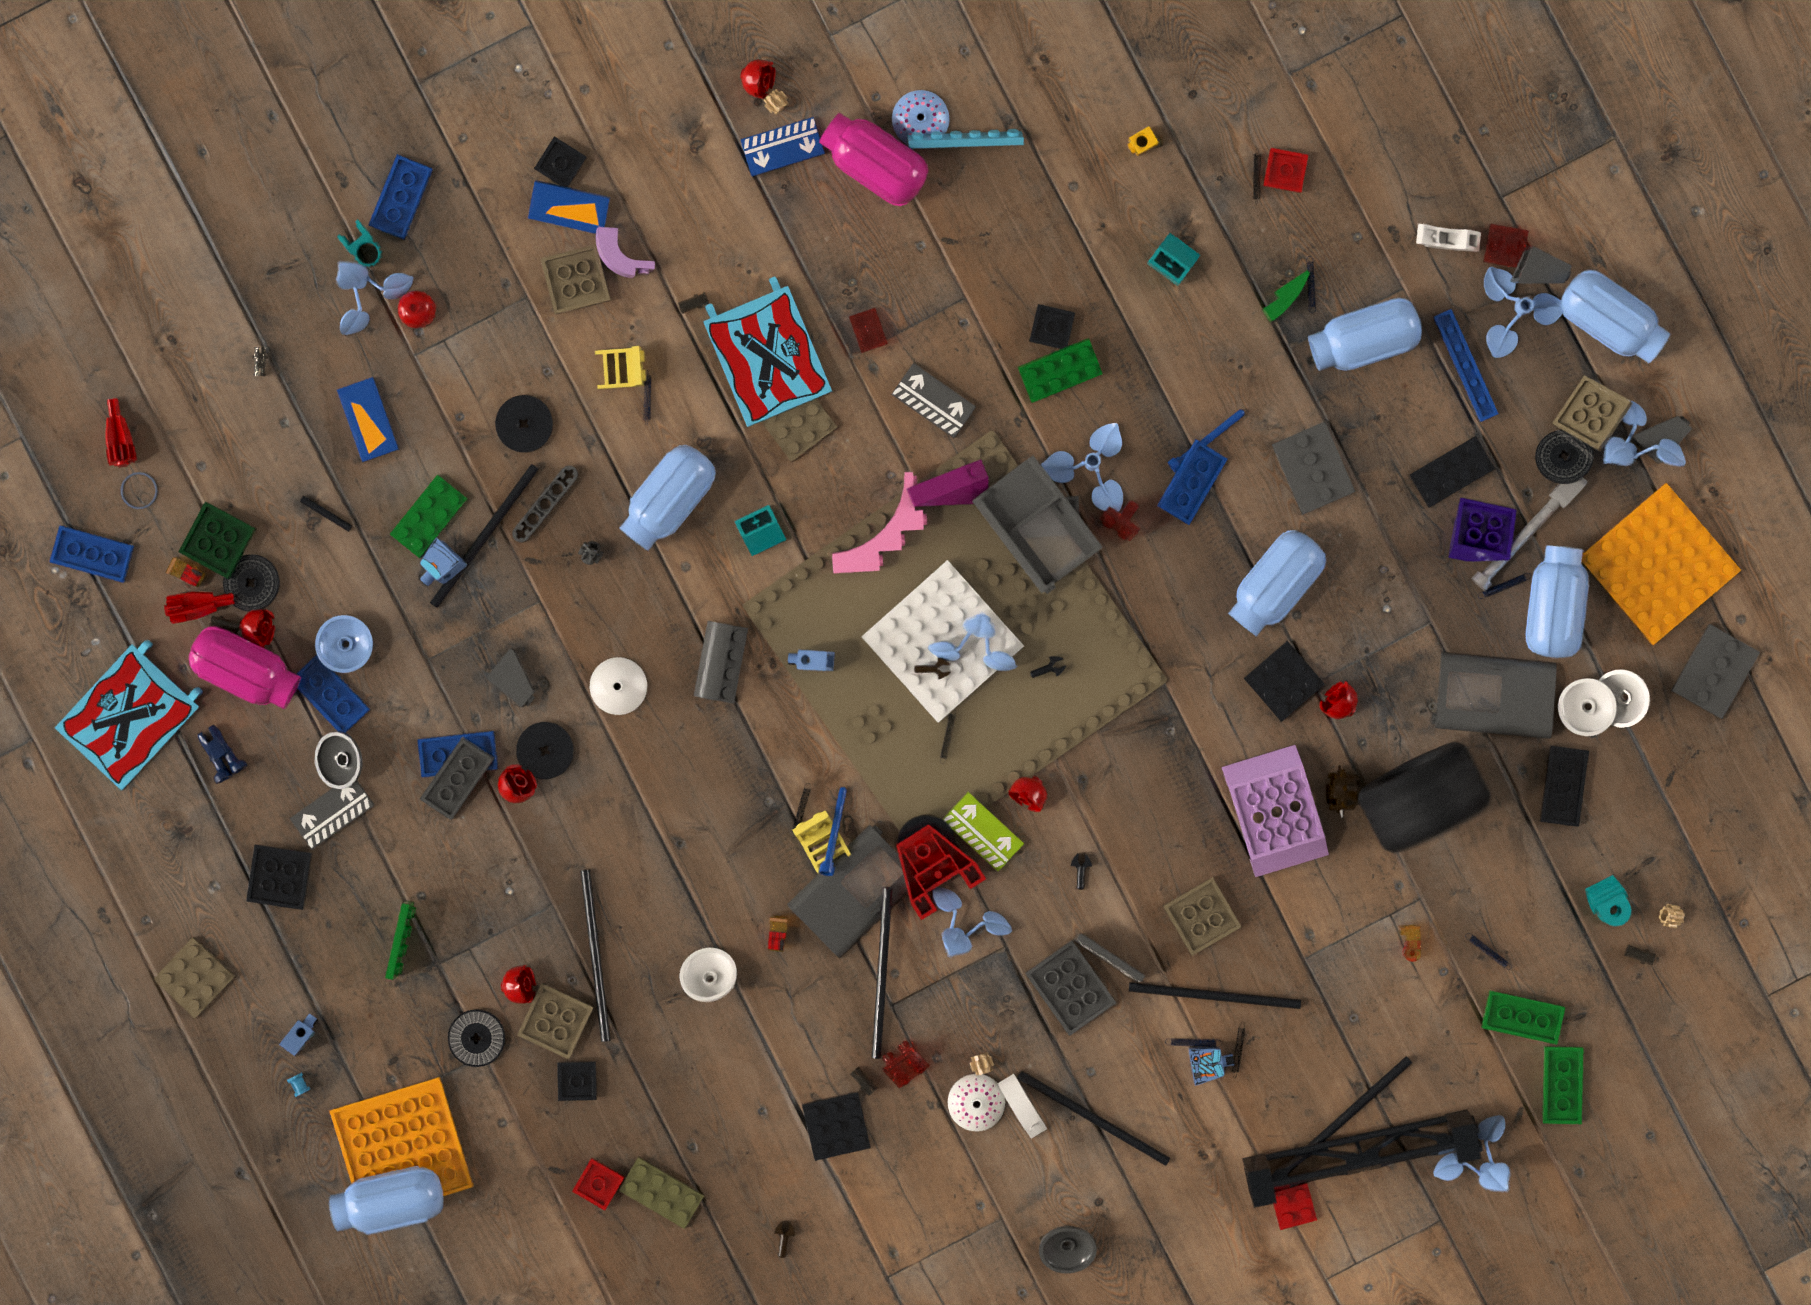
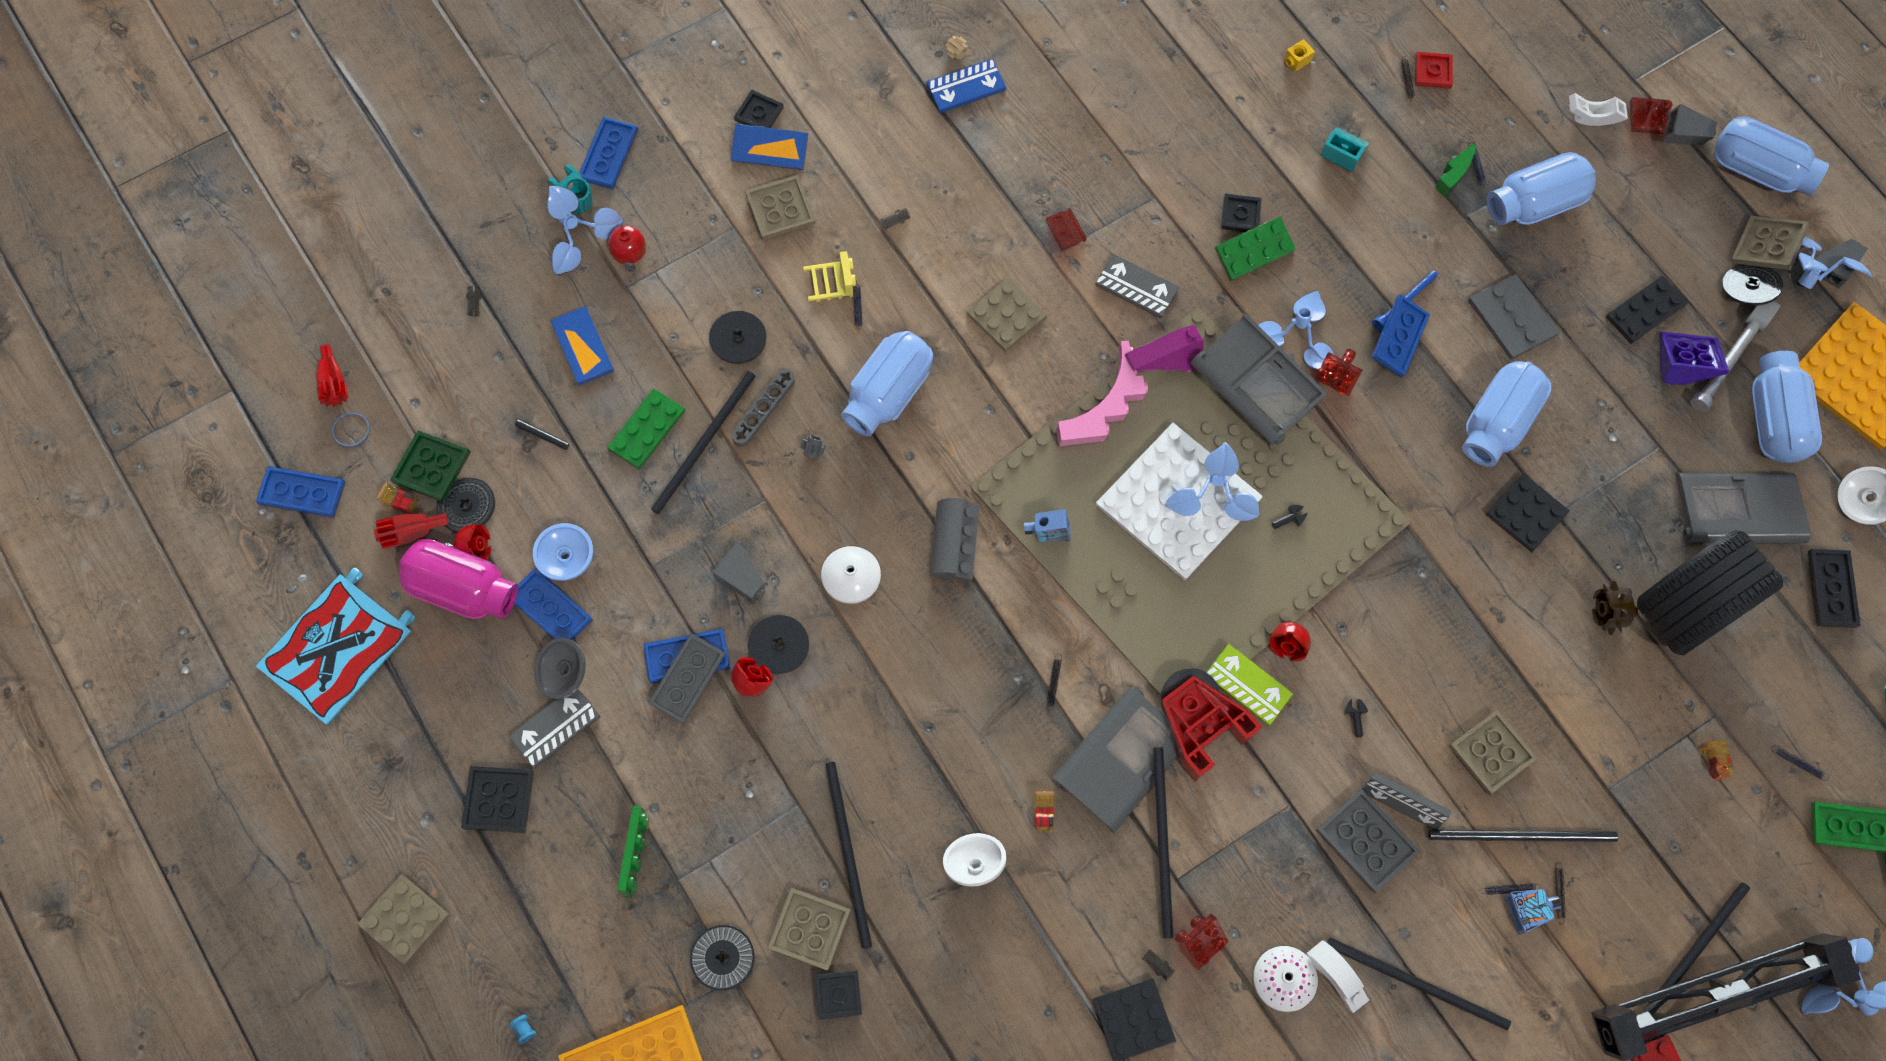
camera: 10 degrees left, 20 degrees down
(217, 750) = (429, 673): dark blue piece -> none
(294, 1043) = (517, 978): medium blue torso -> none
(441, 563) = (661, 467): medium blue torso -> none
(518, 984) = (766, 890): red cylinder -> none
(614, 259) = (819, 184): lavender arch -> none
(758, 77) = (937, 28): red cylinder -> none
(760, 530) = (982, 410): teal slope -> none
(767, 355) = (971, 257): flag -> none
(814, 832) = (1072, 699): light yellow plate -> none
(827, 867) = (1092, 728): blue piece -> none
(875, 159) = (1055, 79): dark pink piece -> none
(915, 103) = (1087, 62): light blue dish -> none
(933, 668) = (1176, 523): dark brown bar -> none
(947, 733) = (1196, 600): black piece -> none
(954, 939) = (1239, 791): light blue plant -> none
(958, 139) = (1143, 61): medium azure plate -> none
(981, 1063) = (1286, 932): tan gear -> none
(1271, 782) = (1560, 663): lavender slope -> none
(1340, 701) = (1590, 523): red cylinder -> none
(1465, 365) = (1638, 216): blue plate -> none
(1511, 582) = (1722, 409): dark blue piece -> none
(1546, 310) = (1699, 165): light blue plant -> none
(1577, 717) = (1847, 497): white dish -> none

